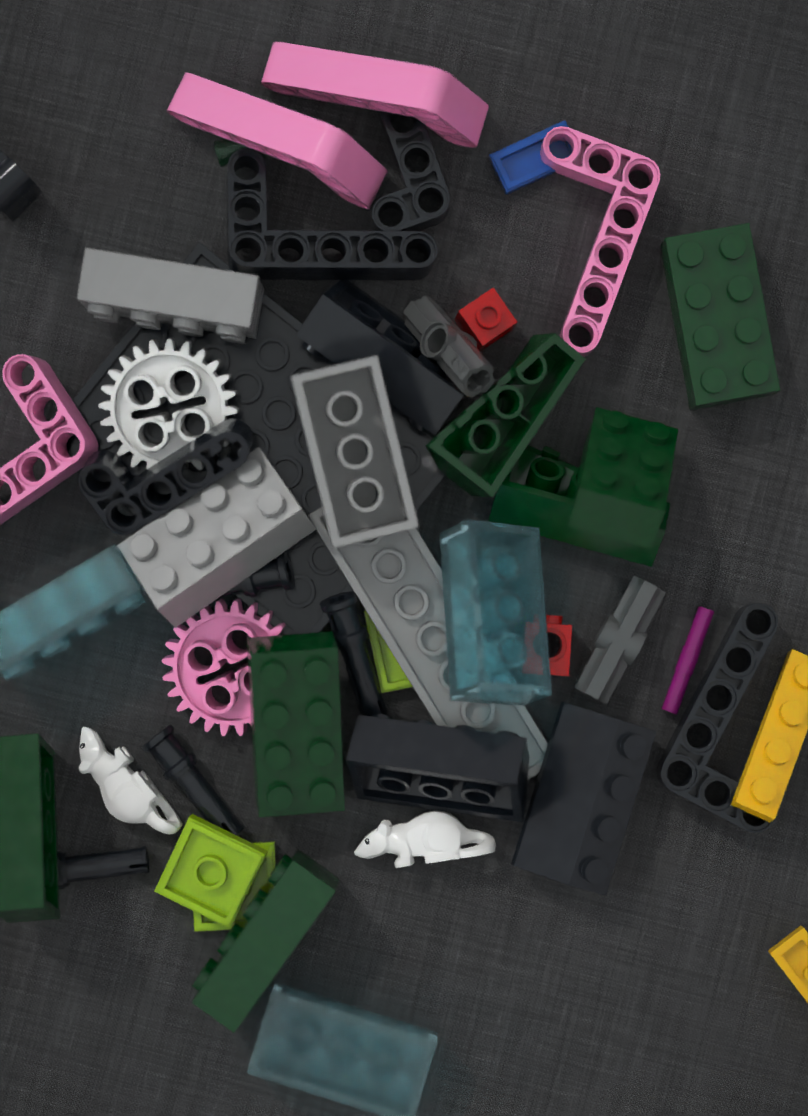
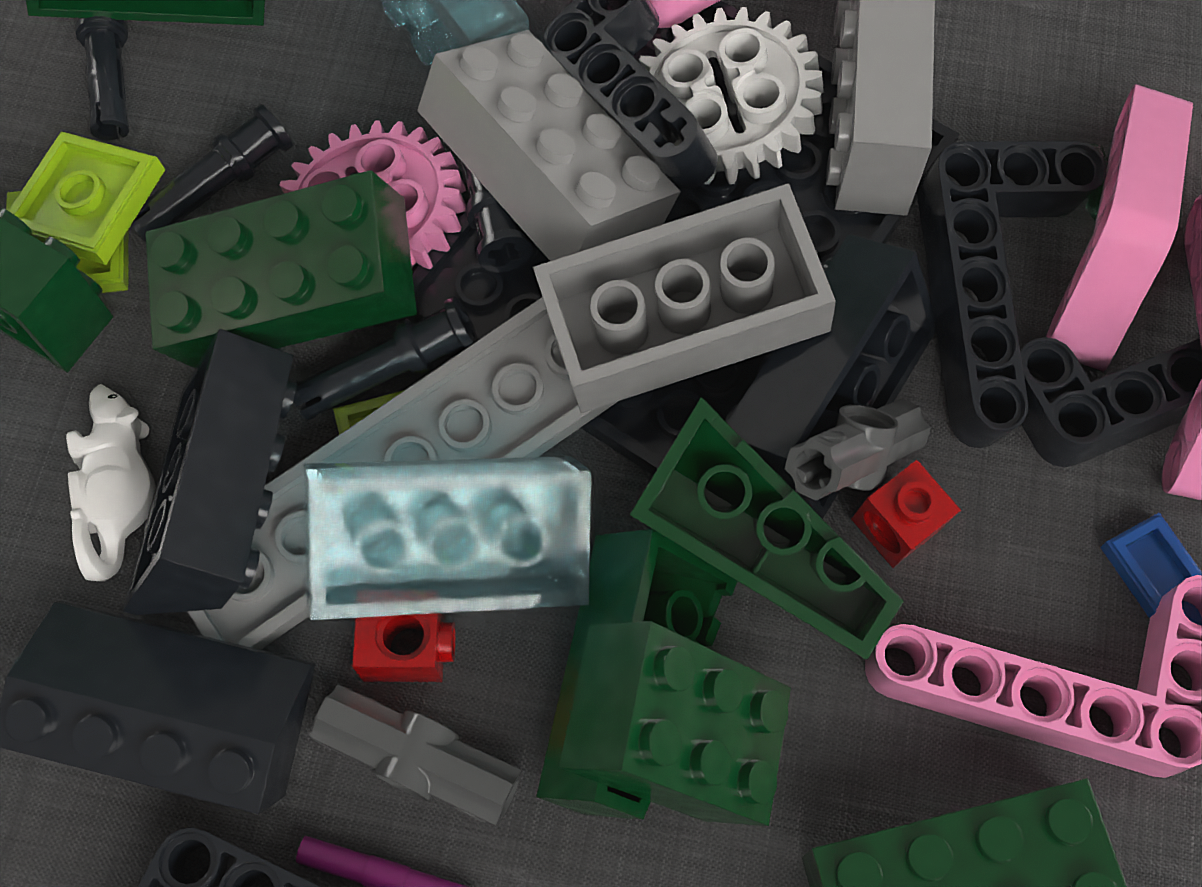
camera: 80 degrees right, 20 degrees down
(125, 793) = (202, 96): white animal -> none

